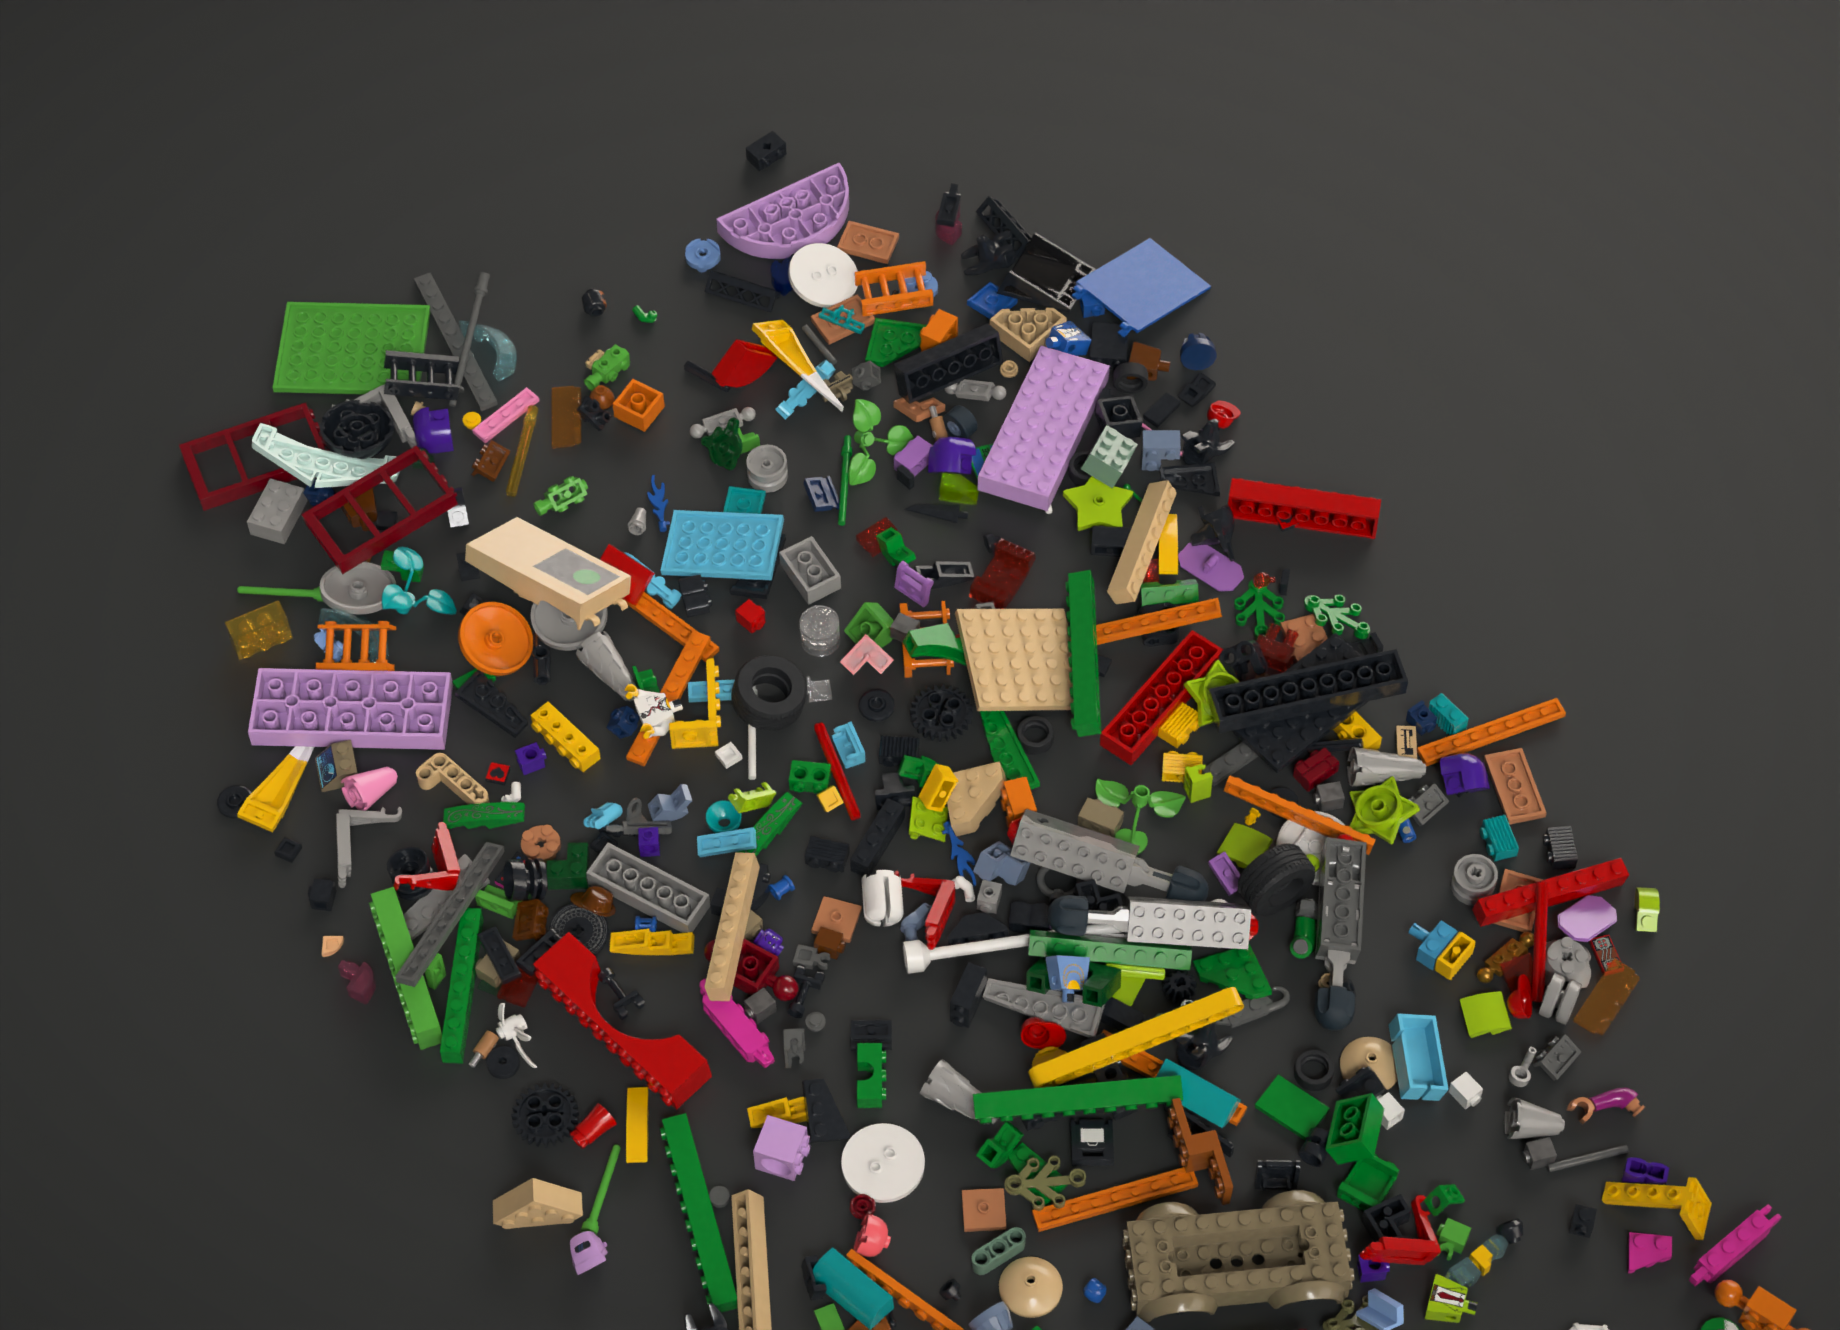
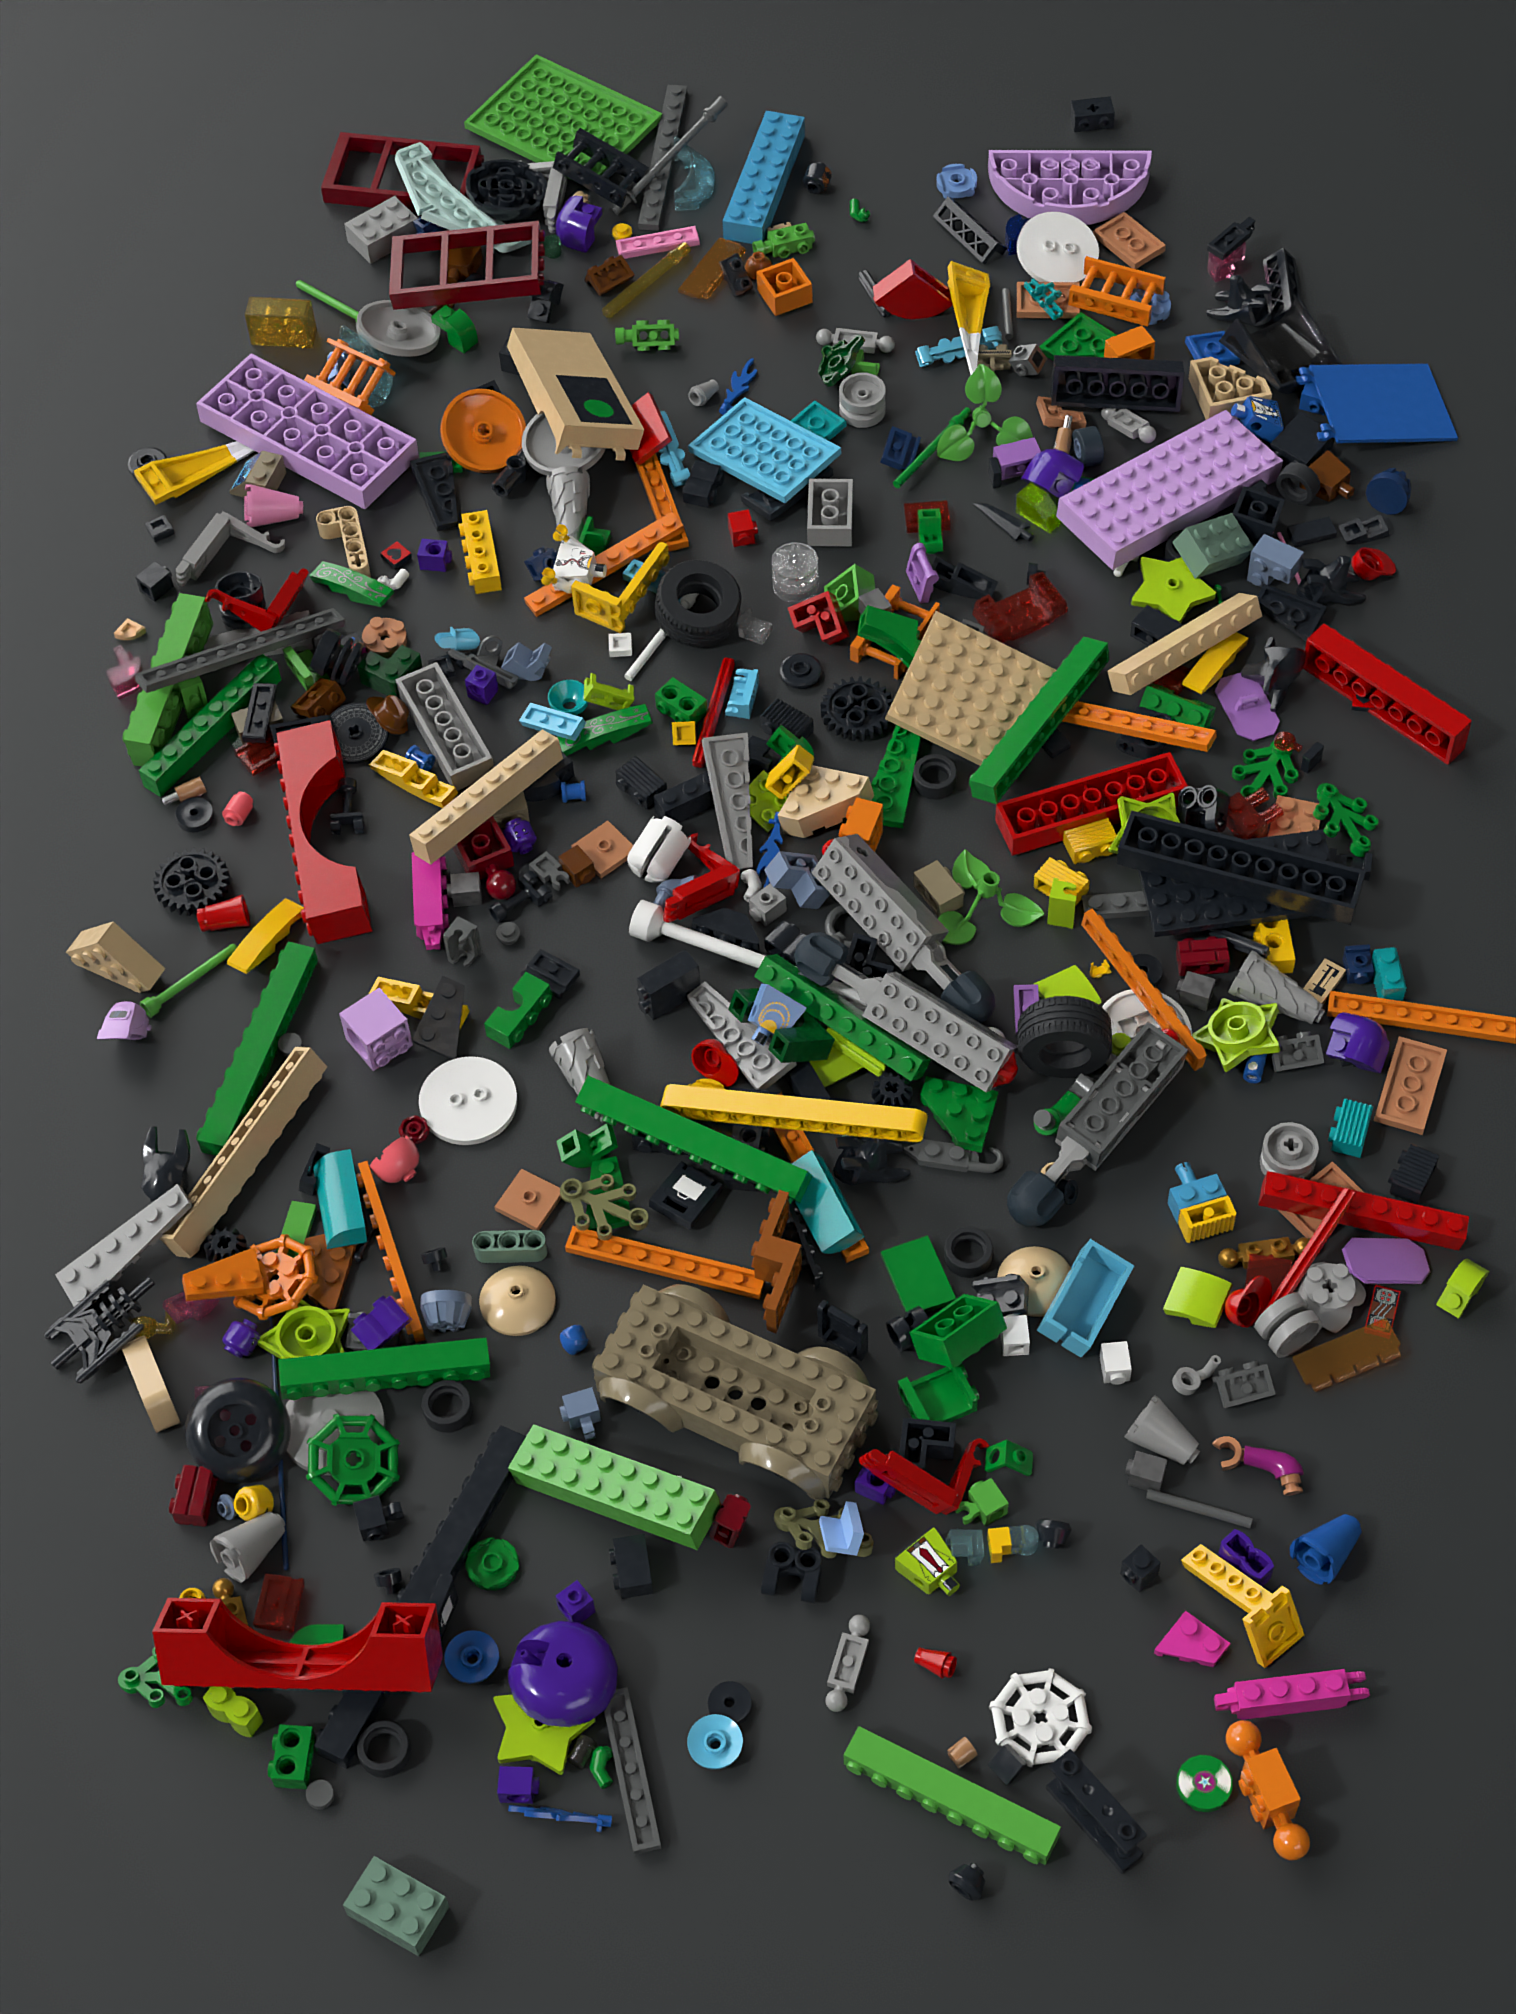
camera: 35 degrees right, 0 degrees up
(395, 598) = (412, 346): teal plant -> none
(513, 1027) = (221, 787): white plant -> none
(538, 1042) = (238, 809): none -> coral brick
(553, 322) = (764, 177): none -> dark azure brick
(898, 816) = (729, 780): none -> light grey wing
(1009, 369) = (1181, 421): tan plate -> none
(1688, 1138) = (1326, 1548): none -> blue cone

